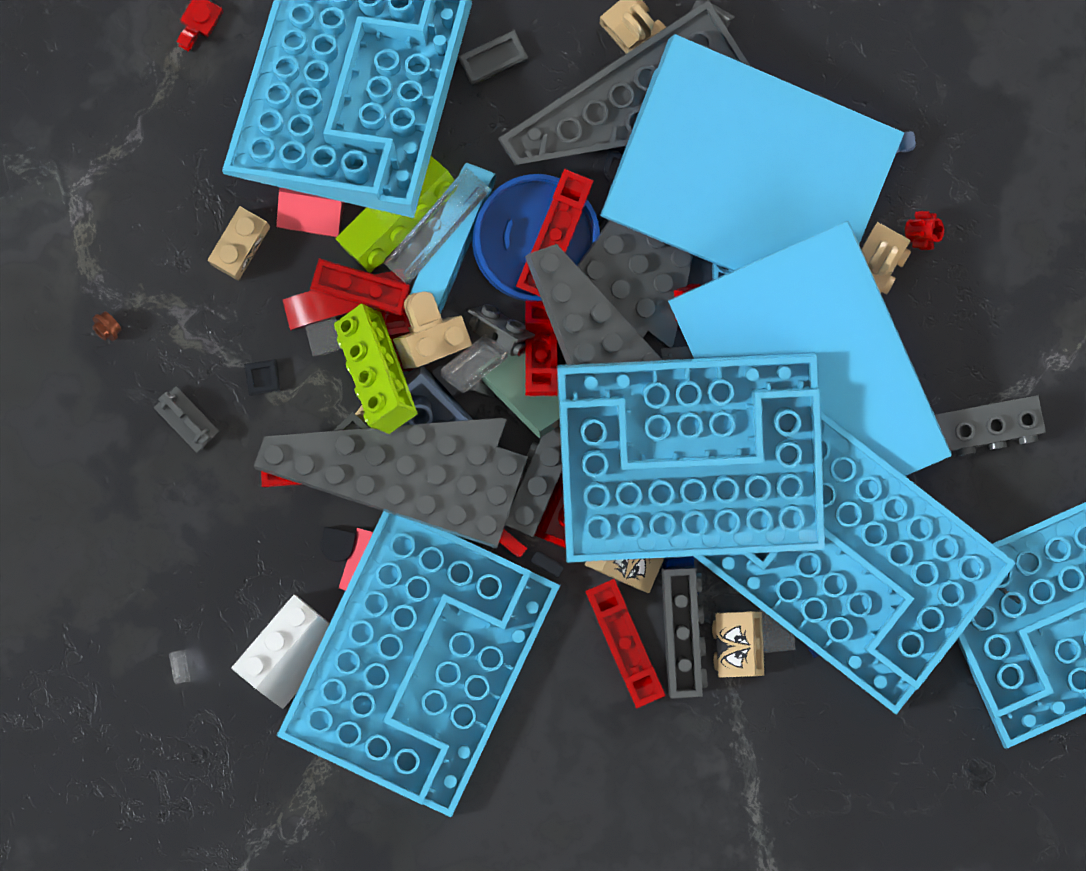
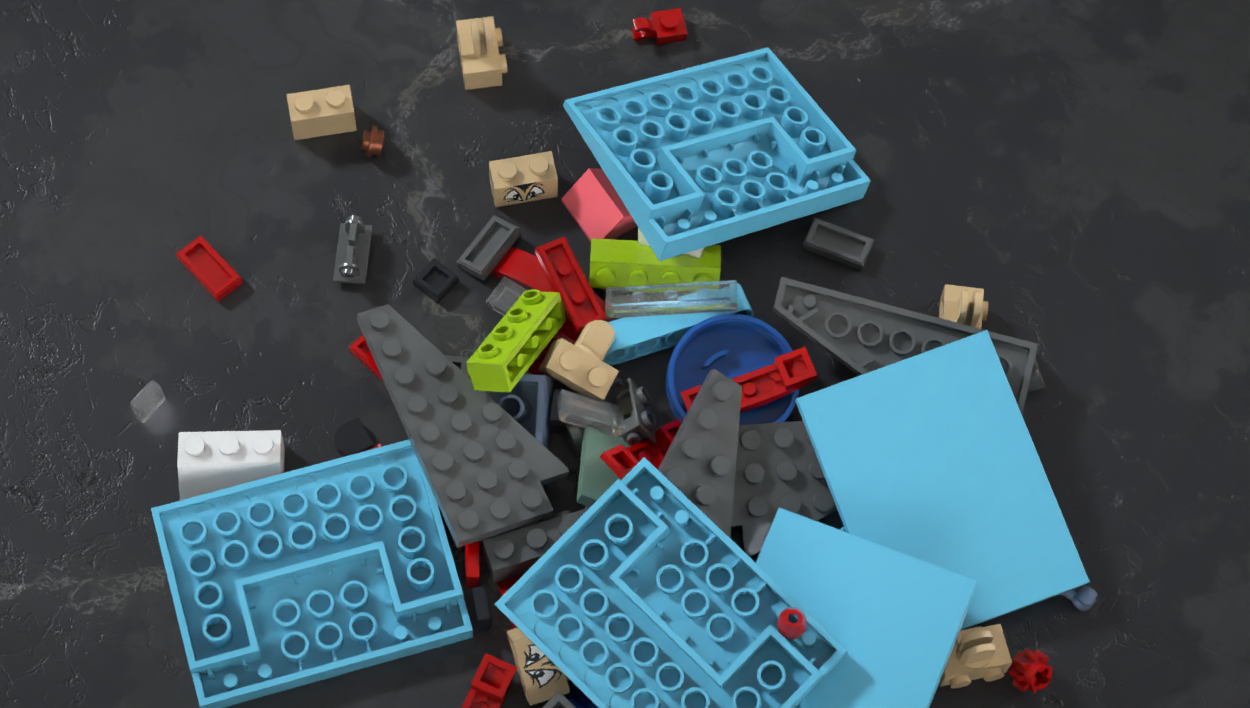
camera: 40 degrees right, 20 degrees down
(48, 344) = (321, 112): none -> tan brick
(100, 180) = (480, 53): none -> tan brick
(105, 533) = (209, 268): none -> red tile
(270, 316) = (488, 247): none -> dark grey tile
(759, 378) = (788, 629): none -> red hose

